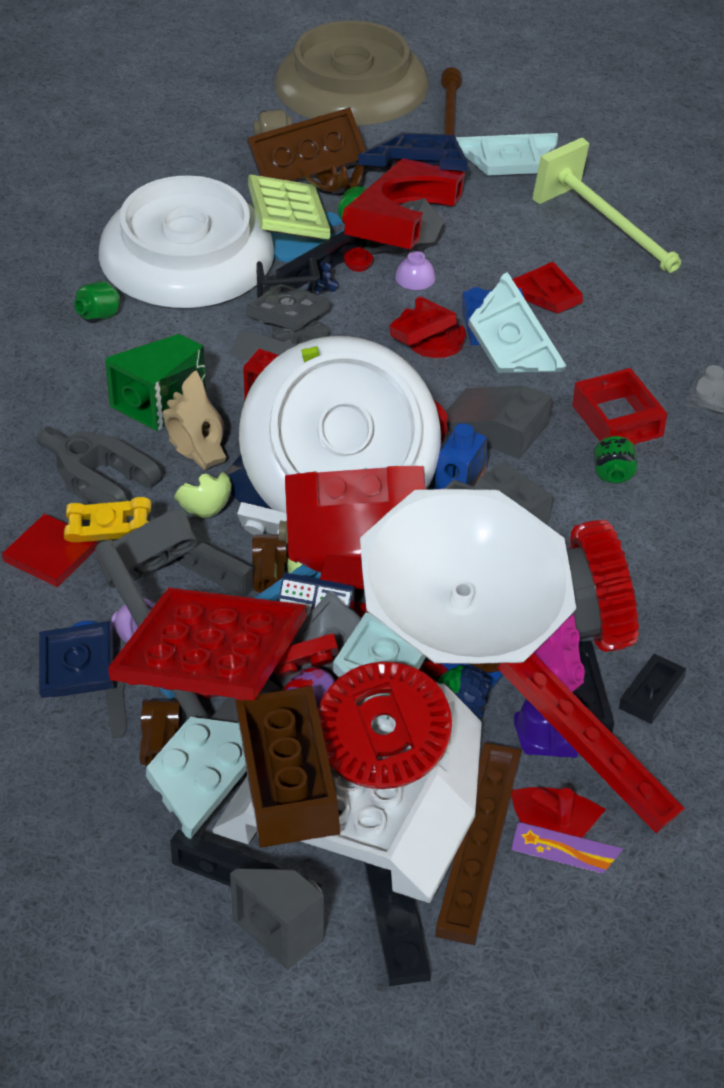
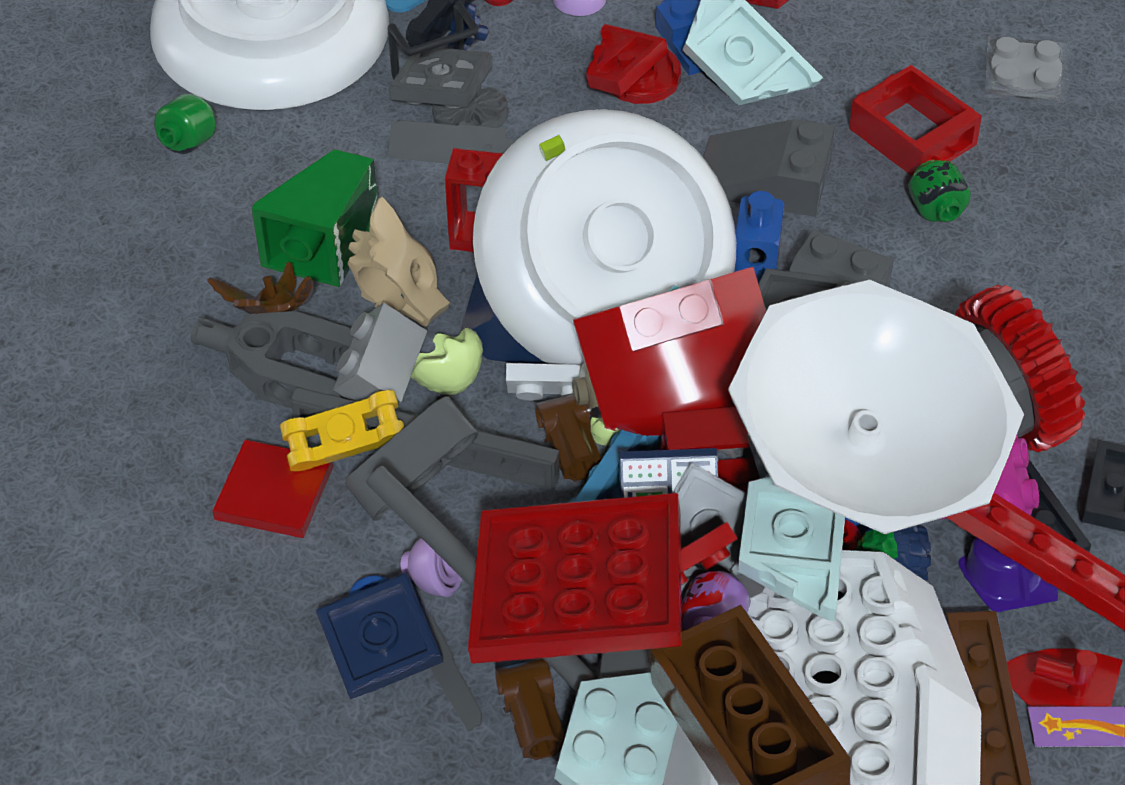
camera: 15 degrees left, 5 degrees up
(116, 427) = (273, 297): none -> reddish brown animal
(157, 477) = (380, 354): none -> light grey brick
(420, 719) = (881, 602): red piece -> none

